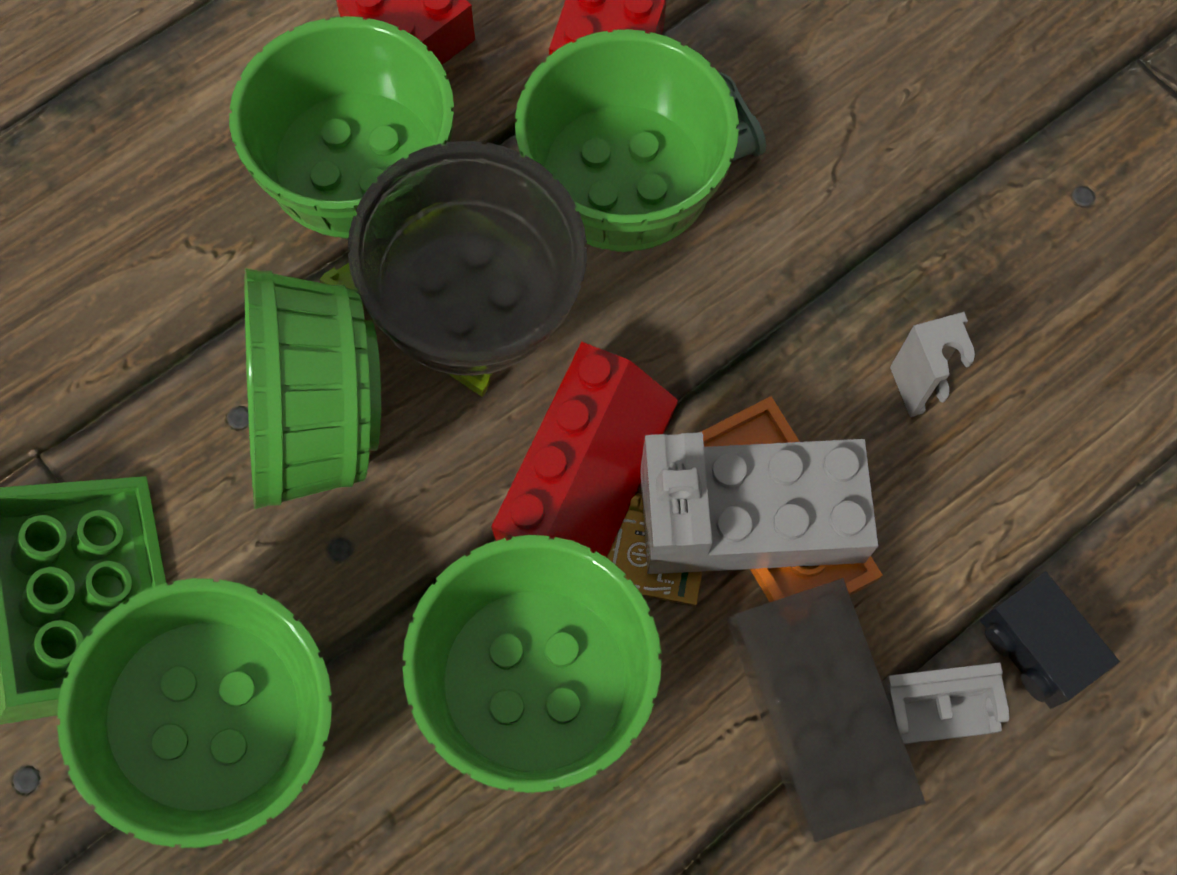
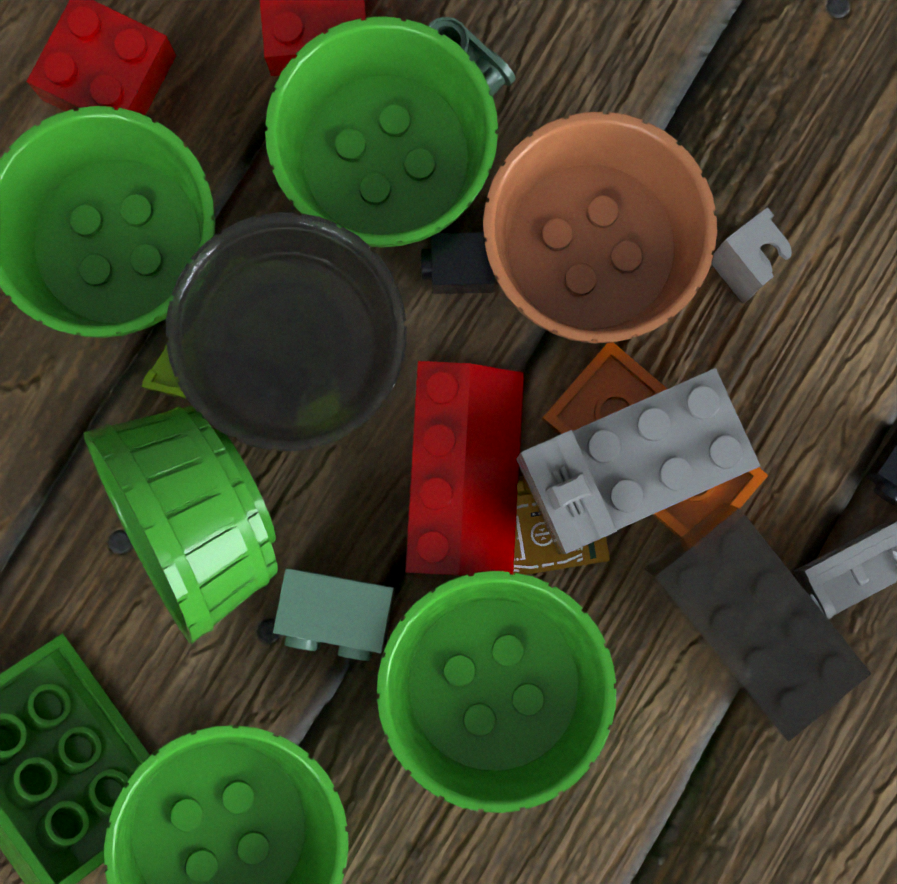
camera: 20 degrees left, 15 degrees up
(403, 534) = (334, 612): none -> sand green brick
(655, 282) = (457, 264): none -> black brick
(795, 280) = (599, 227): none -> nougat piece

